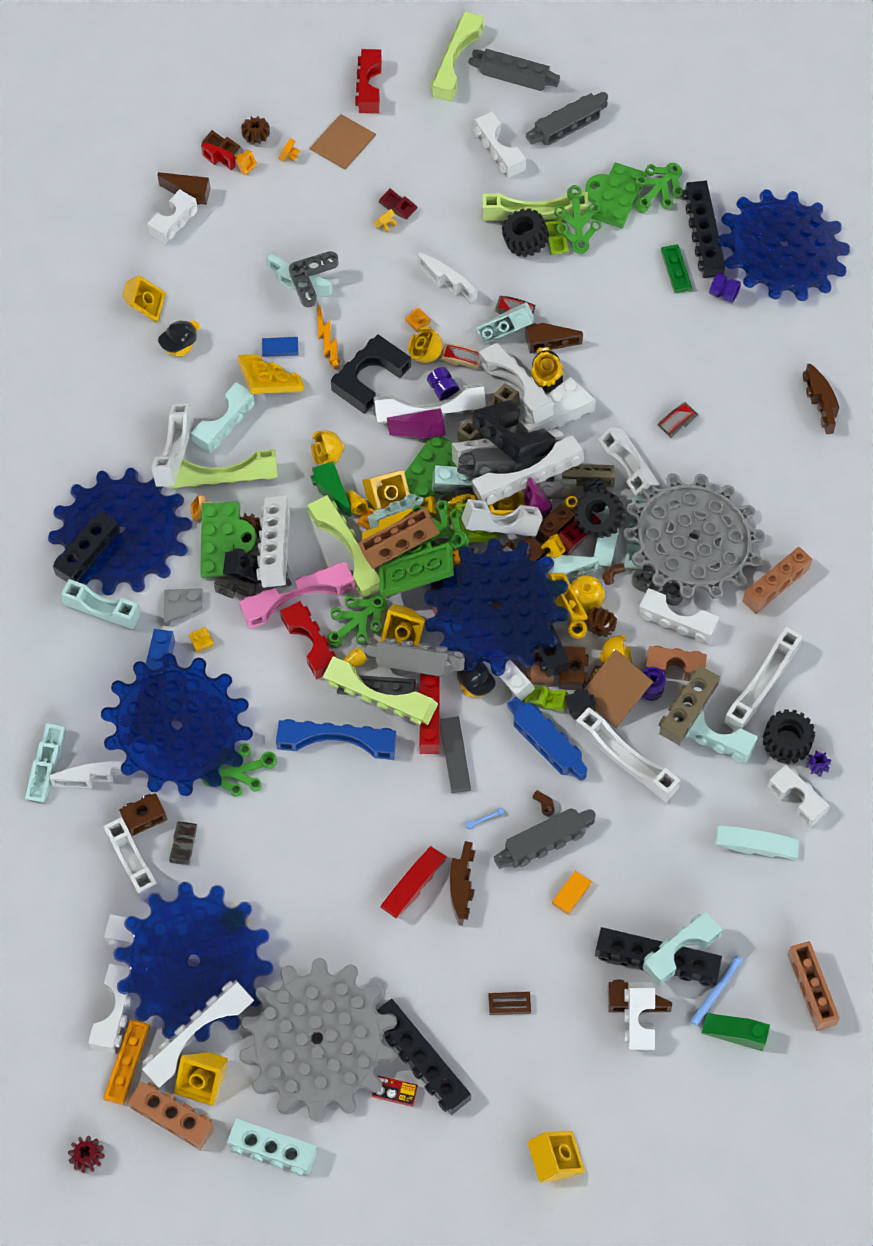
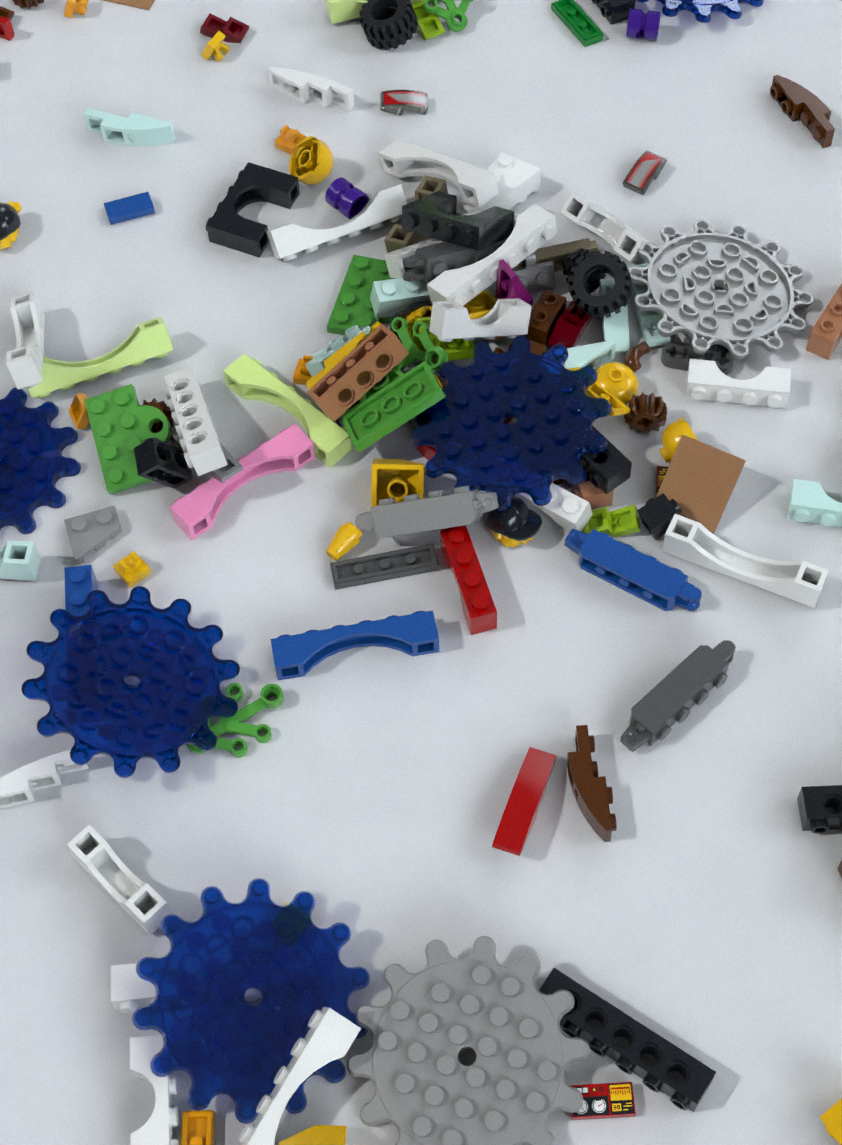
camera: 15 degrees left, 5 degrees down
(153, 817) = (135, 812): reddish brown brick -> none
(183, 843) = (186, 838): clear smoke slope -> none
(210, 433) = (70, 323): light aqua arch -> none
(230, 587) = (151, 494): clear smoke slope -> none
(245, 161) = (25, 24): light orange tile -> none
(268, 377) = (126, 243): yellow plate -> none
(298, 621) = (256, 512): red arch -> none
(303, 275) = (131, 116): dark grey beam -> none
(326, 447) = (225, 301): yellow cylinder -> none
(329, 347) = (195, 193): light orange piece -> none
(329, 484) = (239, 337): green slope -> none
(357, 503) = (286, 355): yellow cone -> none
(358, 618) = (332, 490): bright green plant -> none
(385, 489) = (316, 328): yellow slope -> none
(414, 705) = (448, 569): yellowish green arch -> none
(420, 424) = (332, 249): magenta slope -> none
(455, 754) = (520, 624): dark grey tile -> none
(461, 355) = (351, 165): slope -> none
(469, 824) = (570, 705): light blue hinge -> none
(506, 323) = (399, 117): light aqua slope -> none
(508, 1011) = (719, 938): reddish brown tile -> none
(546, 803) = (661, 650): reddish brown arm -> none
(547, 370) = (469, 147): yellow hair -> none
(551, 336) = (459, 120): reddish brown slope -> none
(555, 545) = (556, 336): yellow tile -> none
(569, 499) = (557, 286): yellow cone -> none
(571, 892) = (740, 755): light orange tile -> none
(574, 678) = (639, 488): reddish brown brick -> none
(575, 625) = (621, 428): yellow cone -> none
(656, 689) = (750, 467): dark purple wheel -> none
(664, 657) = (777, 433): nougat arch -> none
(675, 730) = (801, 477): dark tan brick -> none

